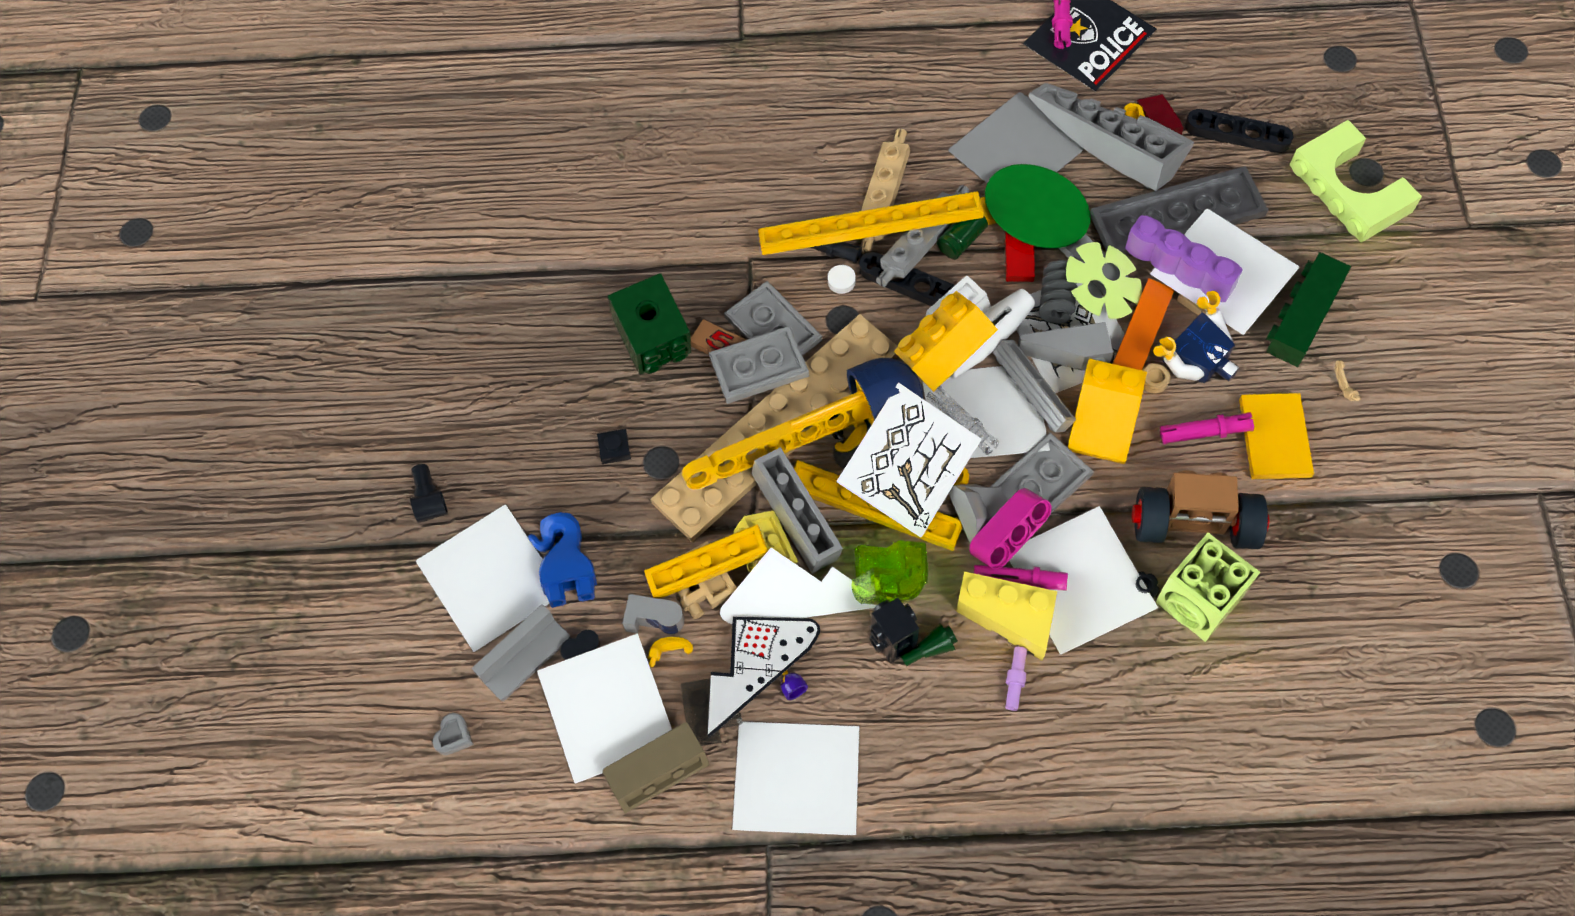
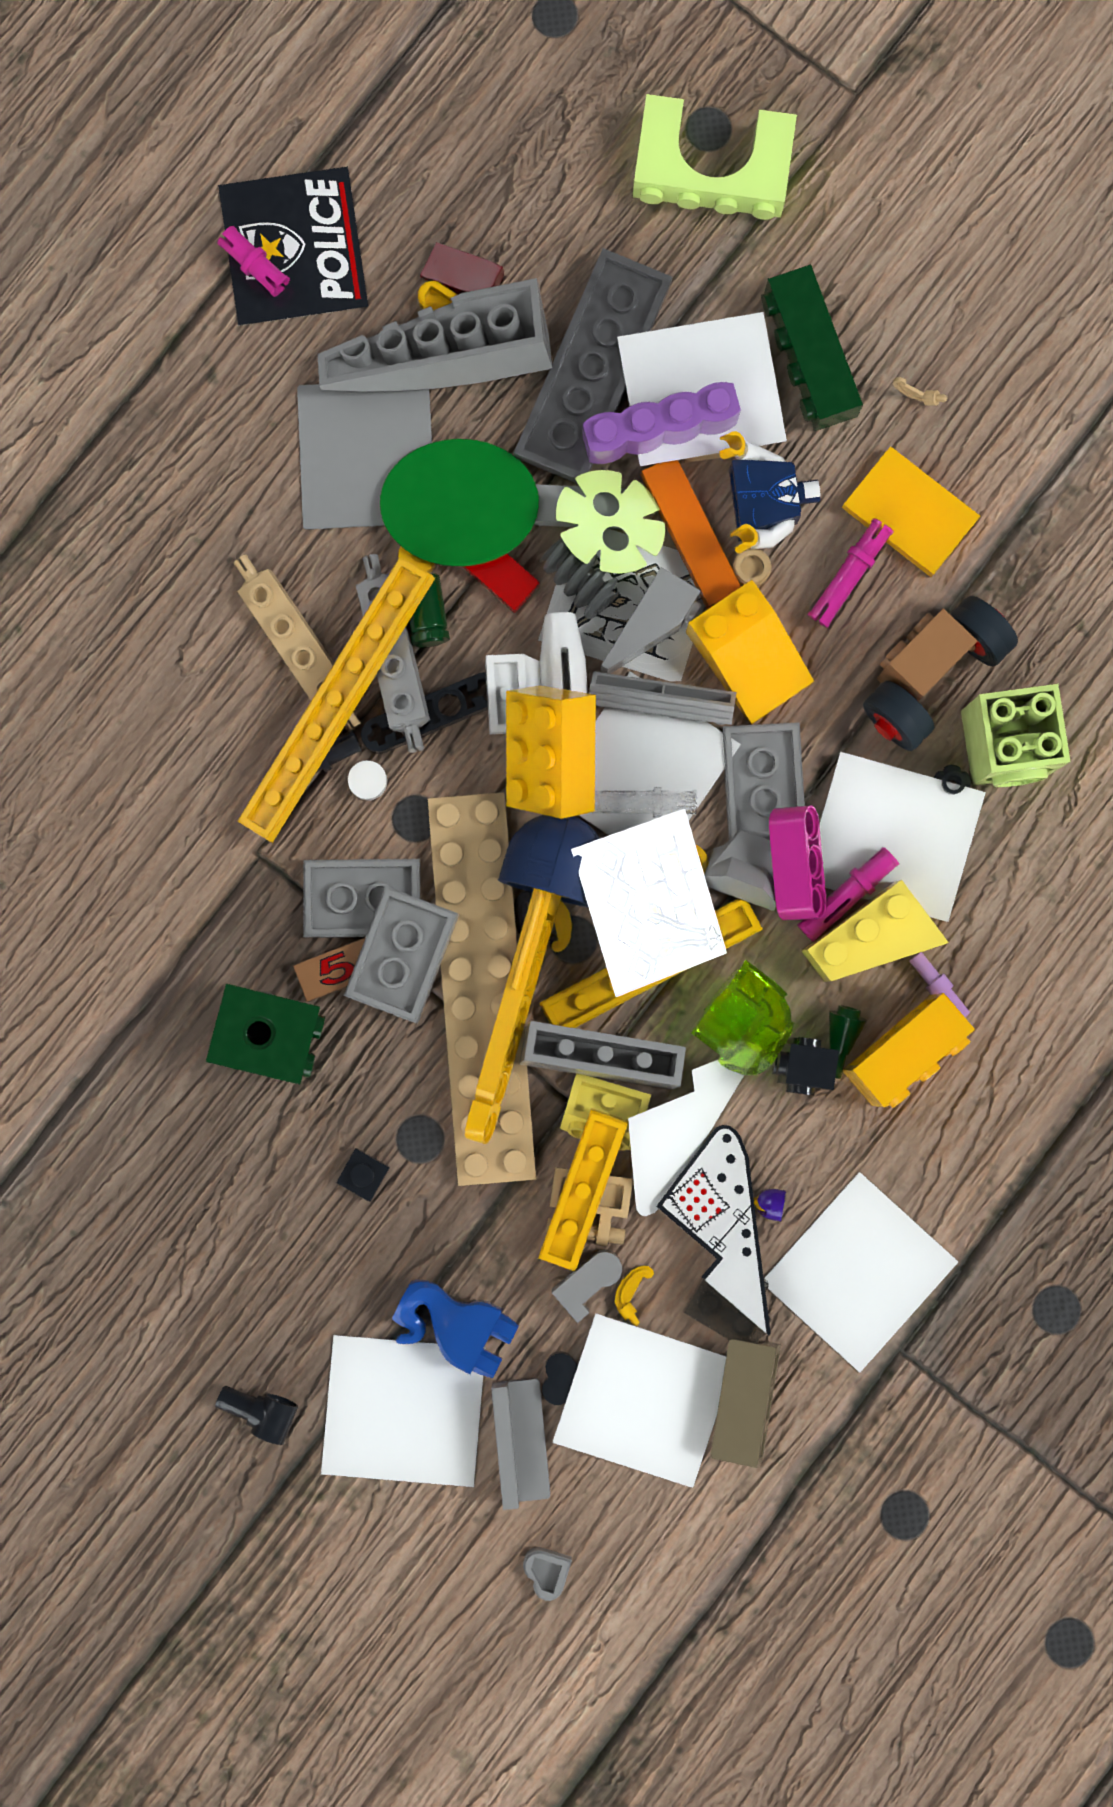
camera: 55 degrees left, 20 degrees up
(959, 682) = (909, 1051): none -> yellow brick
(1239, 126) = (547, 205): black beam -> none

